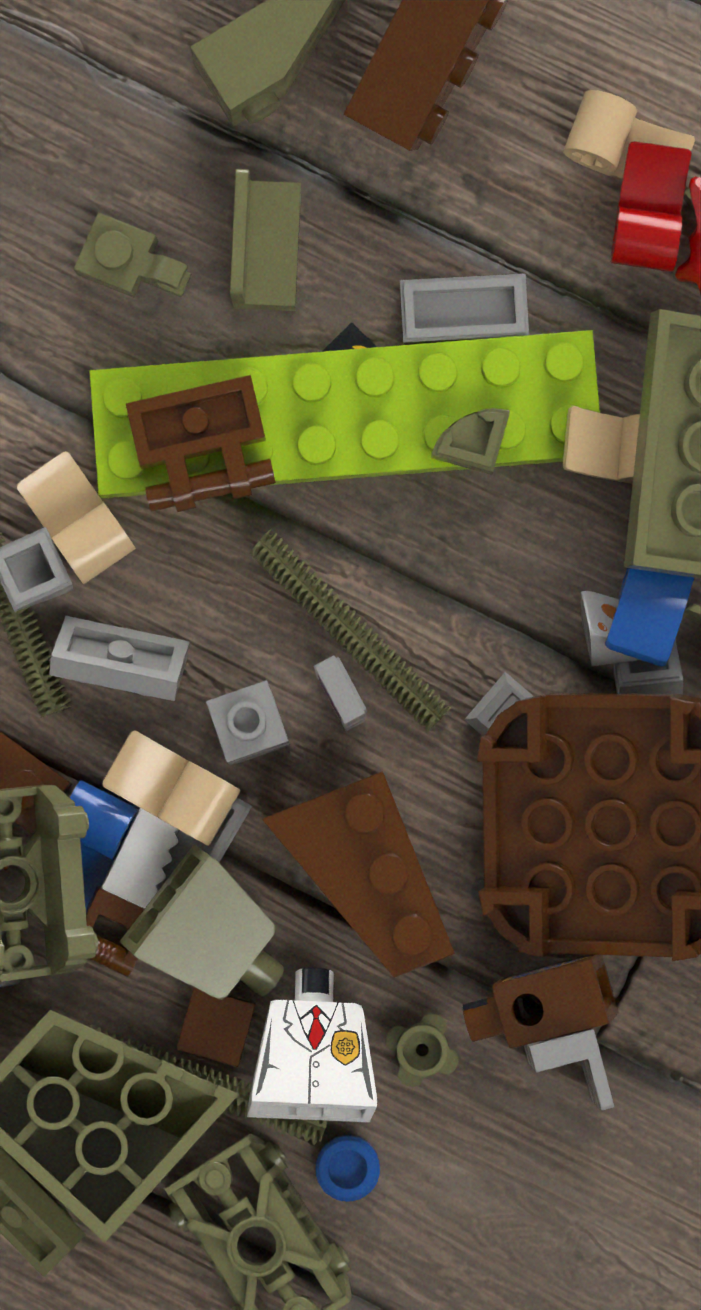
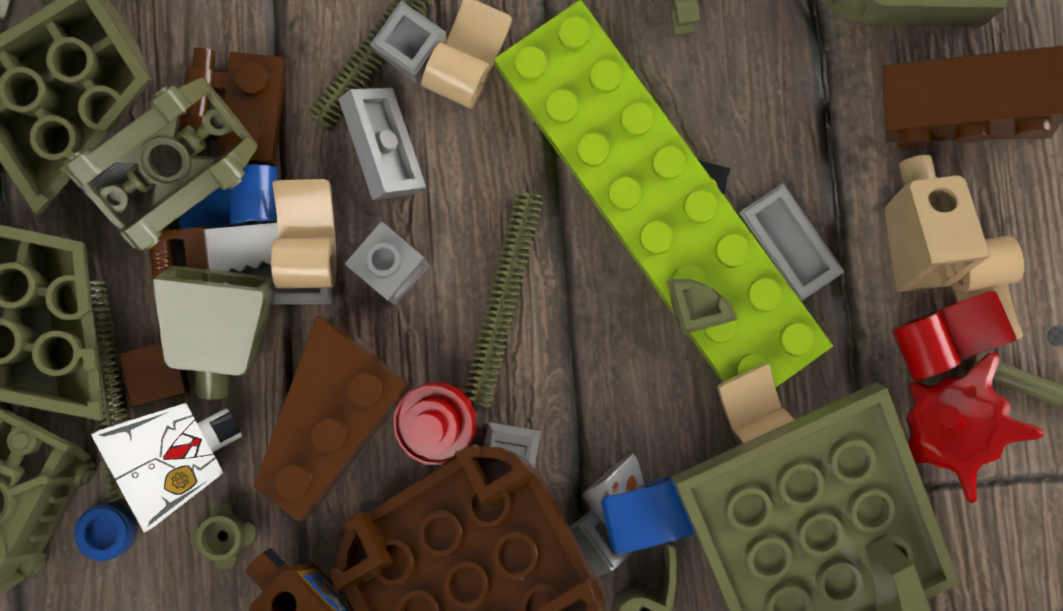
camera: 50 degrees right, 0 degrees up
(197, 424) = (585, 93): reddish brown plate -> none
(265, 244) = (749, 68): olive panel -> none
(341, 692) = (447, 317): light grey tile -> none
(435, 770) = (434, 423): none -> plate
(532, 165) = (932, 228): none -> tan torso

